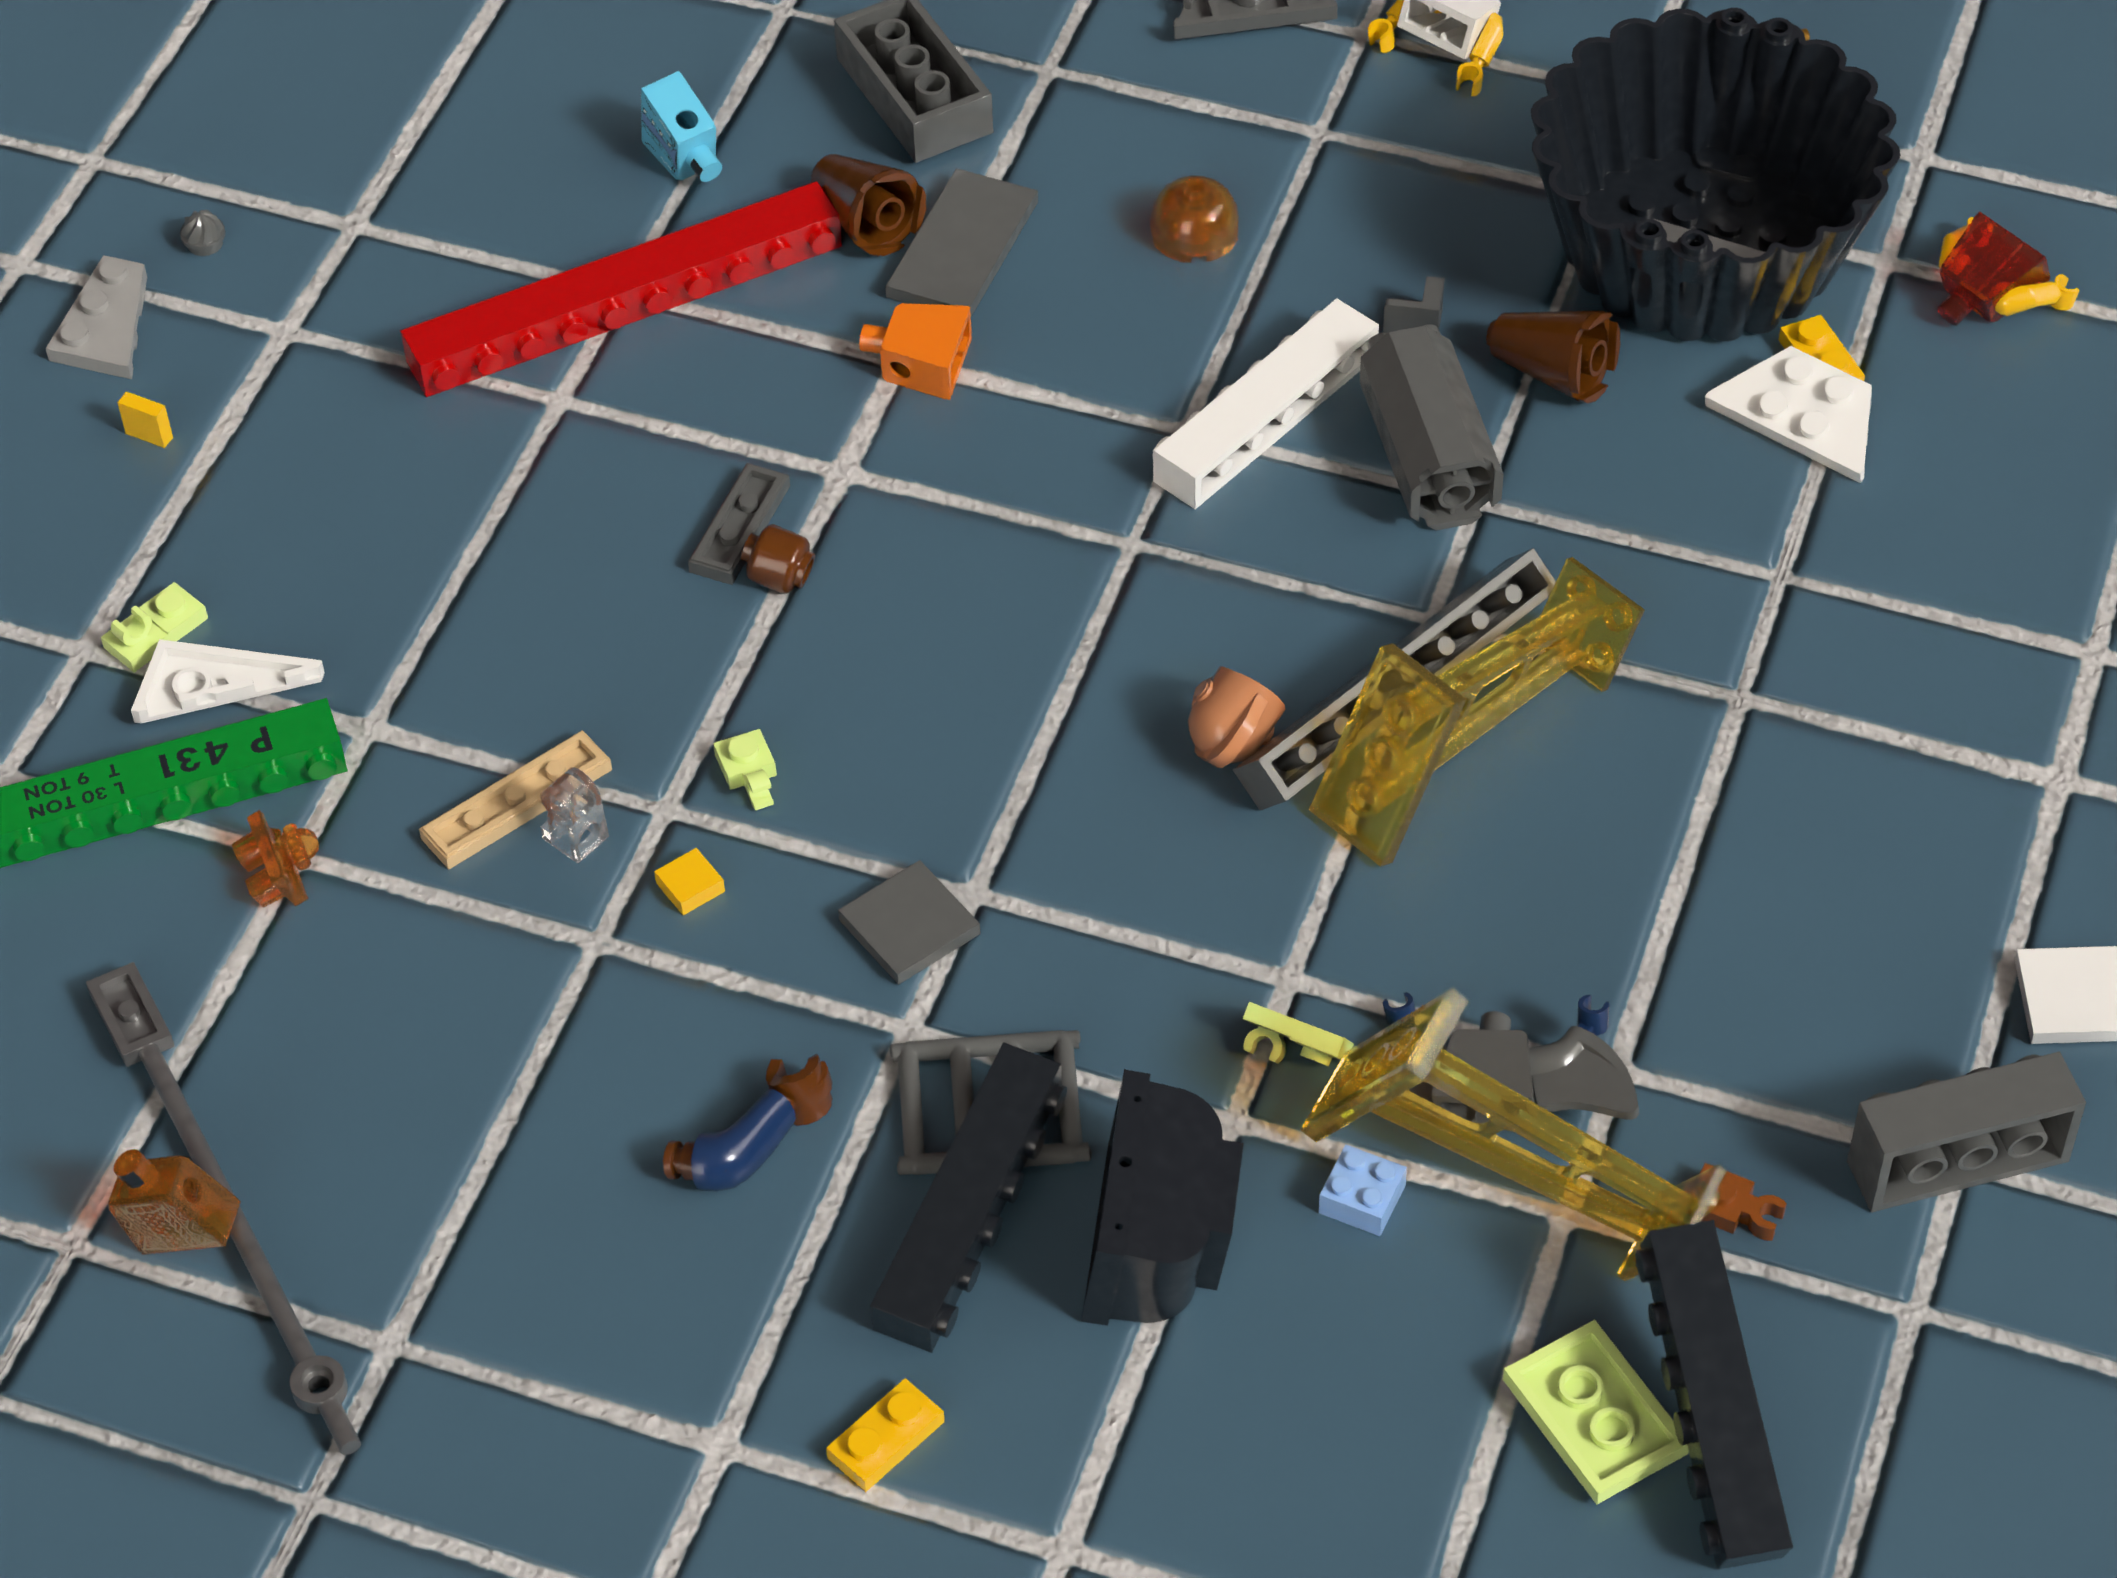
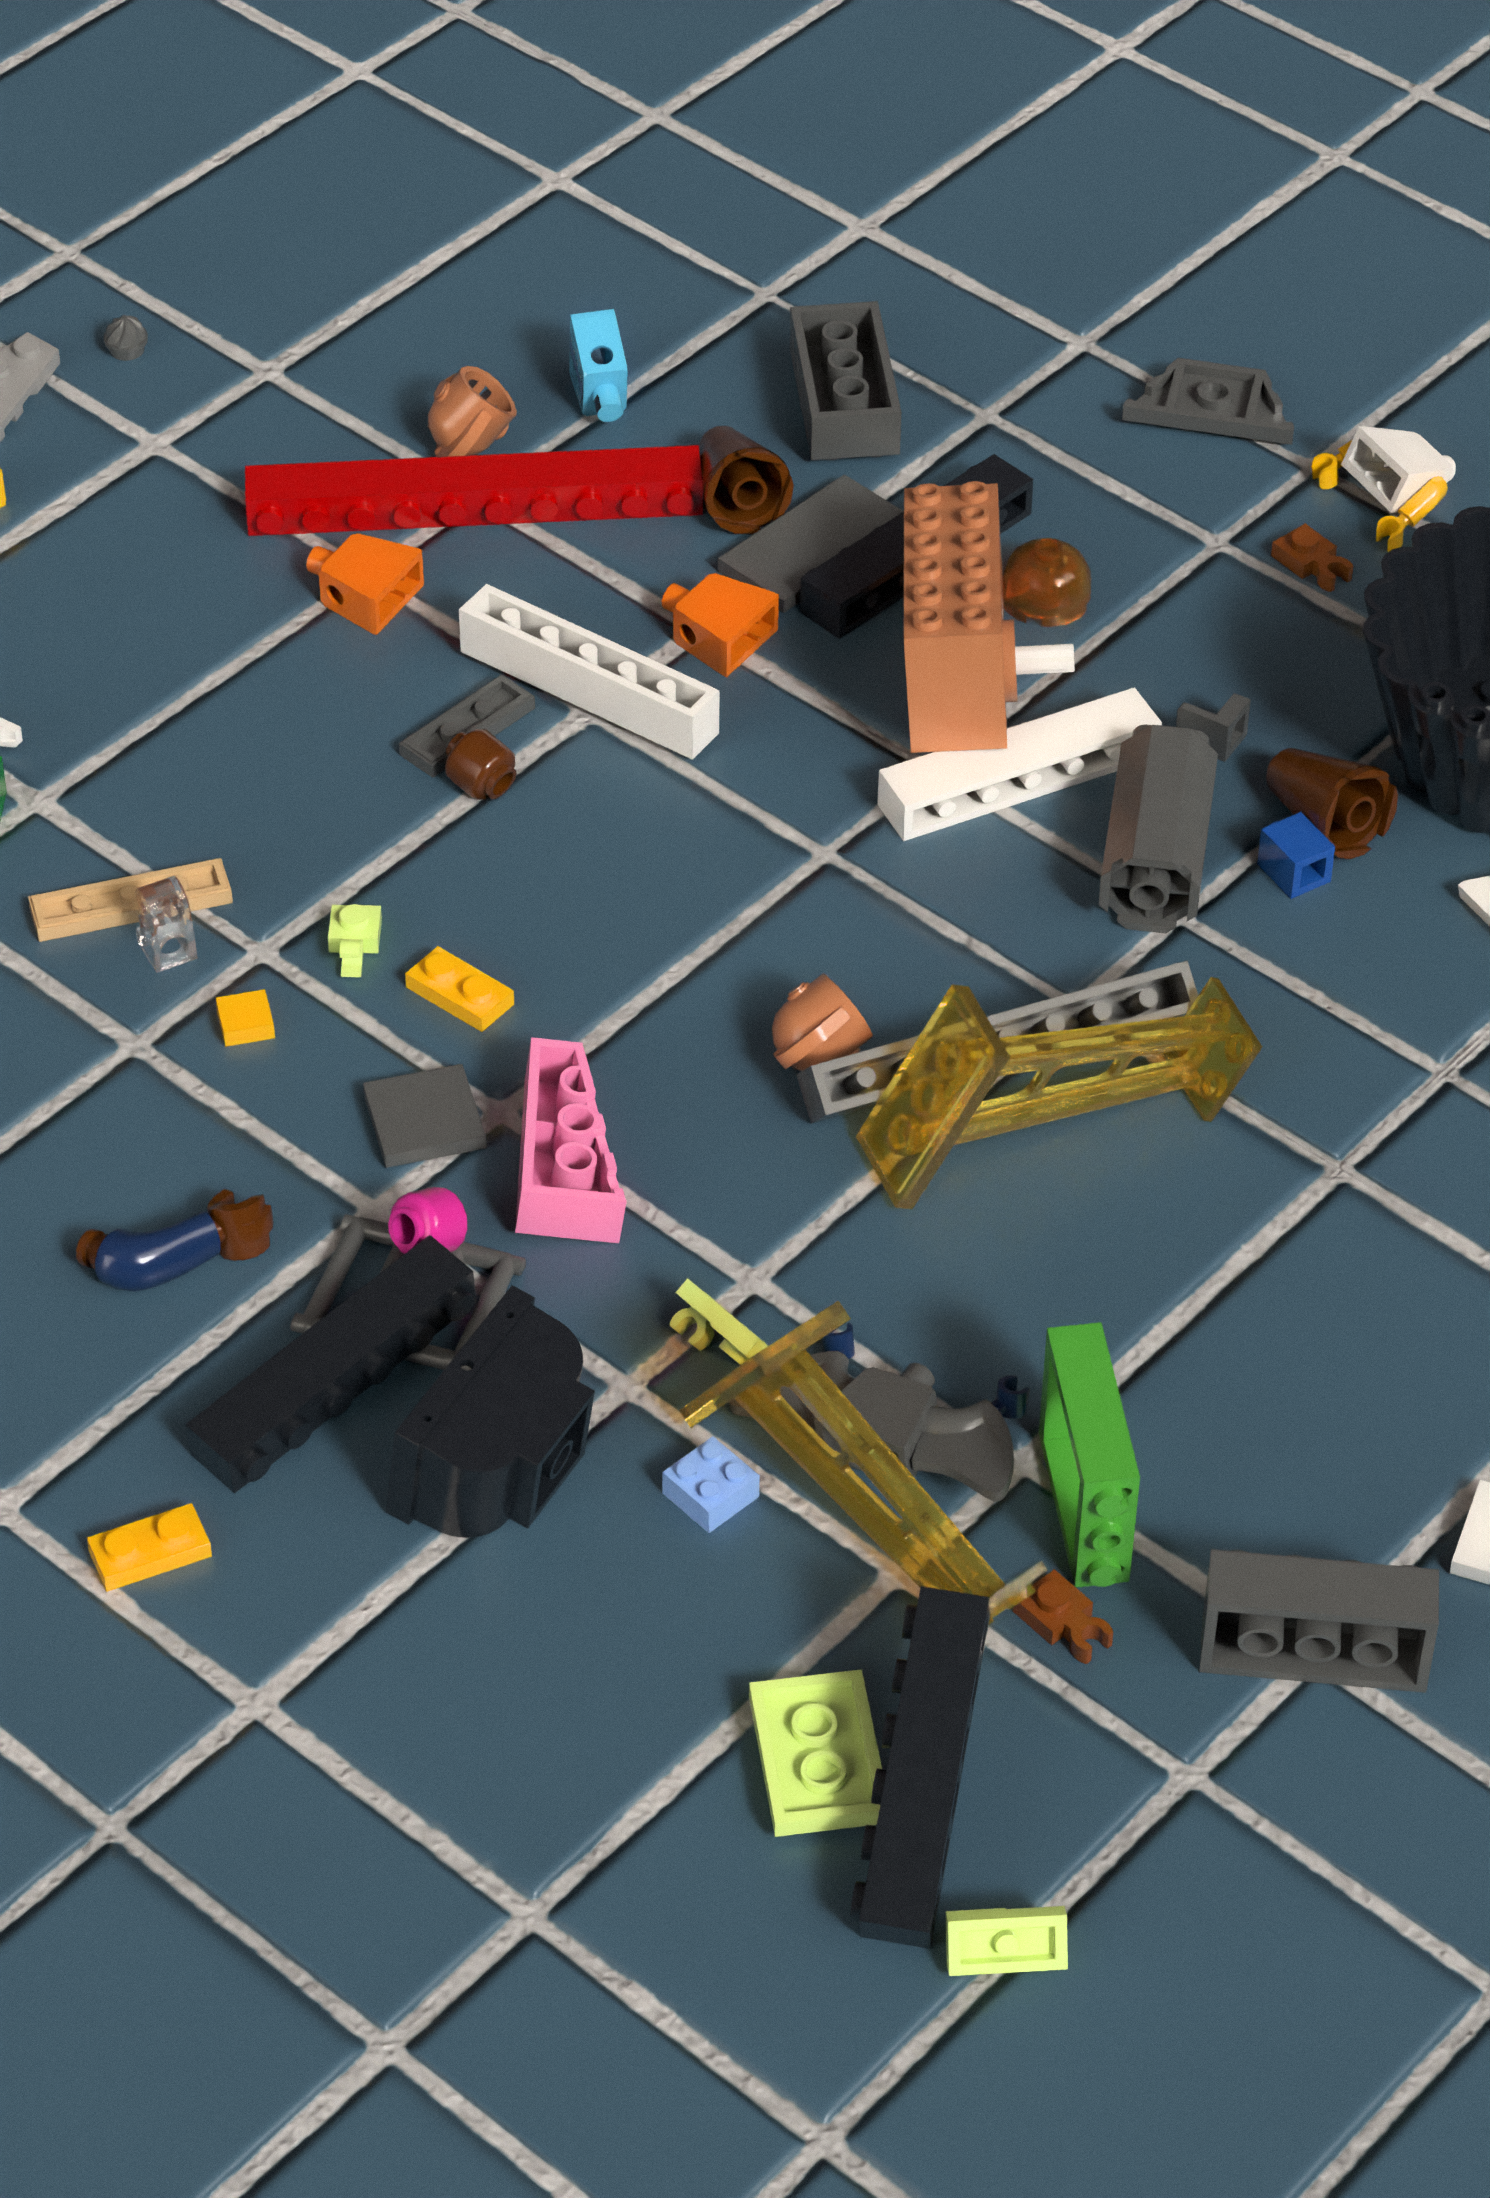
camera: 20 degrees right, 5 degrees down
(570, 407) = (367, 579): none -> orange torso
(583, 214) = (463, 419): none -> nougat helmet
(833, 435) = (589, 671): none -> white brick
(873, 786) = (459, 989): none -> yellow plate
(983, 1026) = (425, 1213): none -> dark pink head
(1059, 219) = (871, 571): none -> black brick
(1065, 919) = (565, 1161): none -> bright pink wedge
(1164, 284) = (955, 631): none -> nougat piece
(1411, 119) = (1310, 553): none -> dark orange plate
(1553, 413) = (1295, 855): none -> blue brick
(1670, 978) = (1088, 1455): none -> bright green window
(1852, 1527) = (1006, 1940): none -> yellowish green plate

